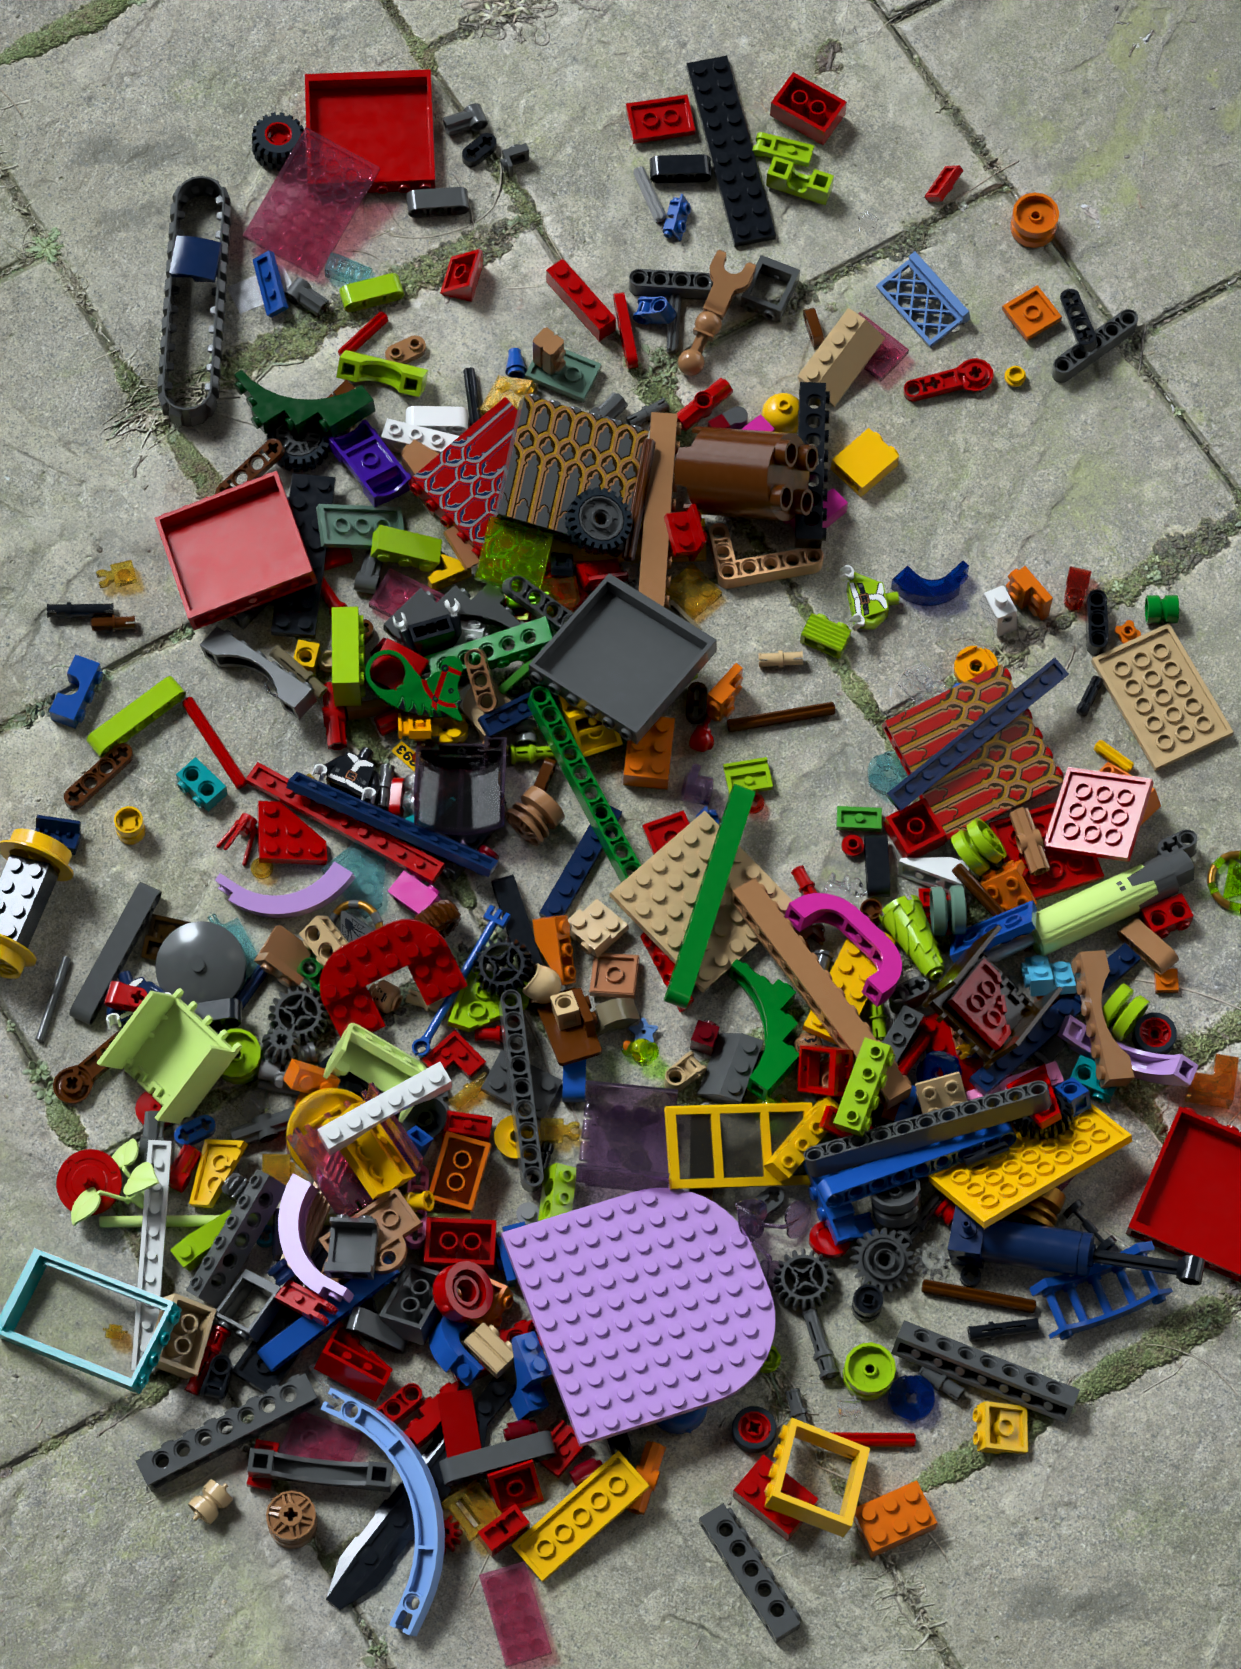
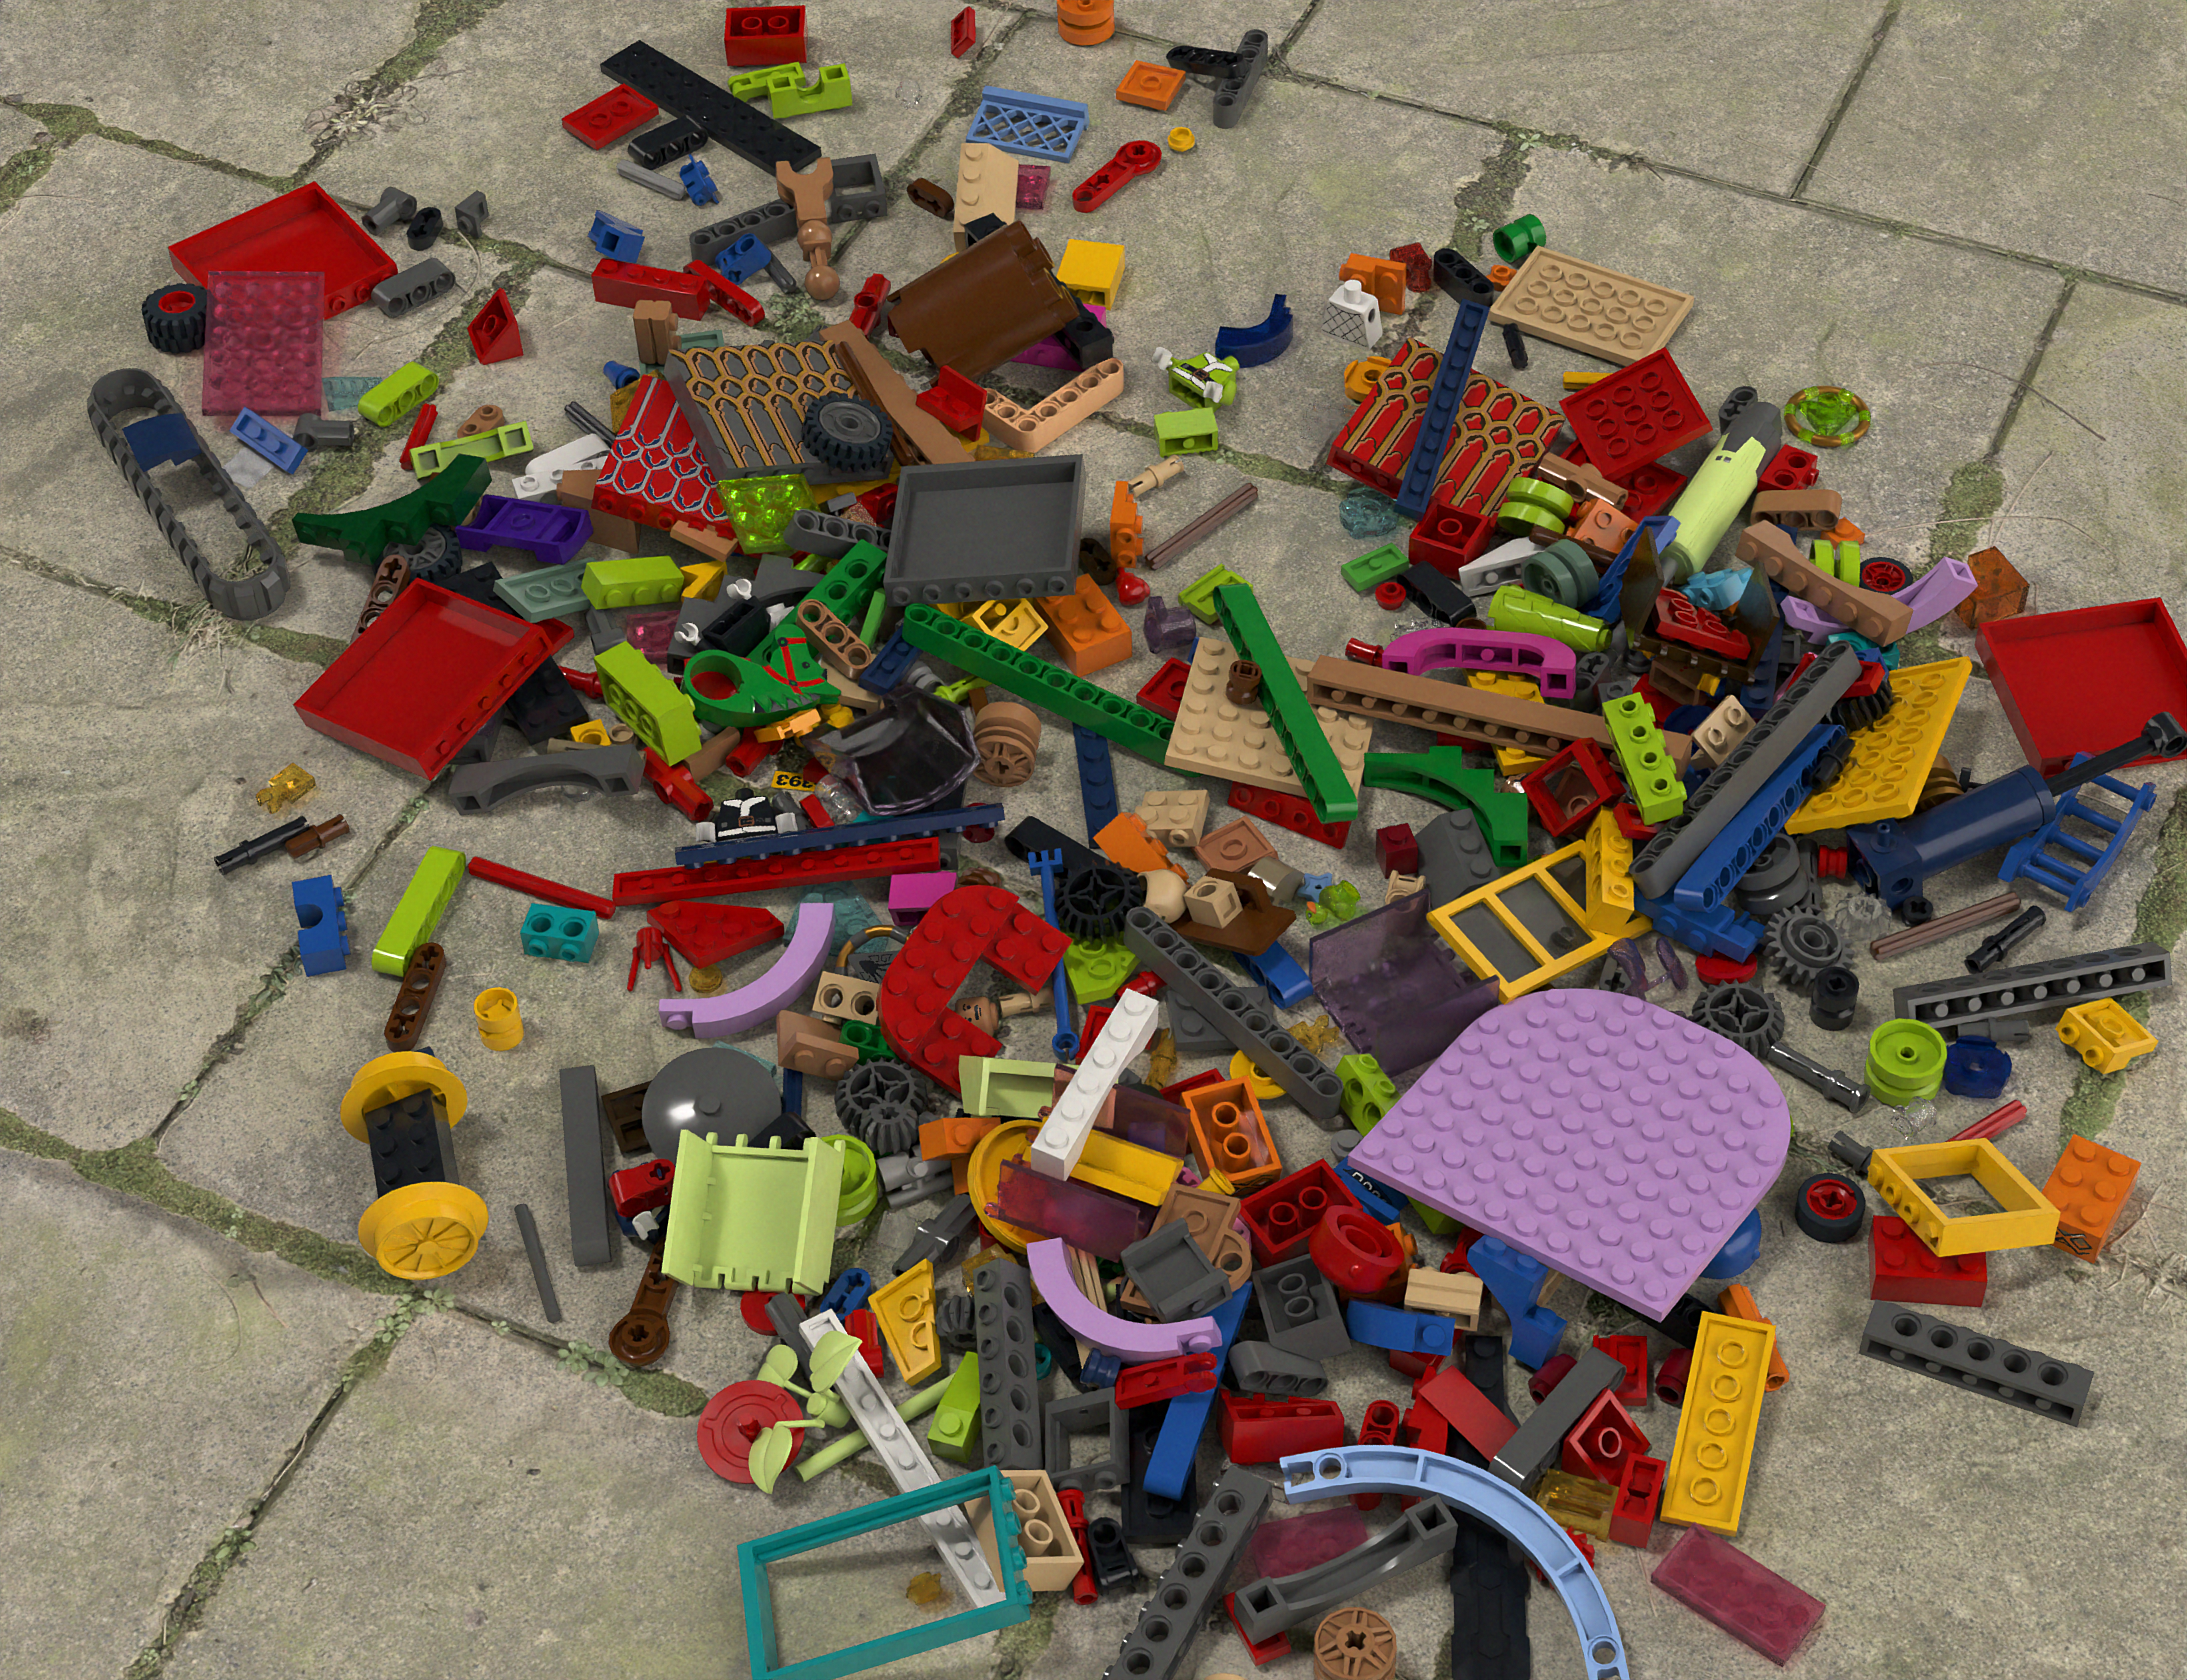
camera: 30 degrees left, 20 degrees down
(588, 243) = (616, 237): none -> blue arch
(691, 872) = (1243, 682): none -> reddish brown wheel

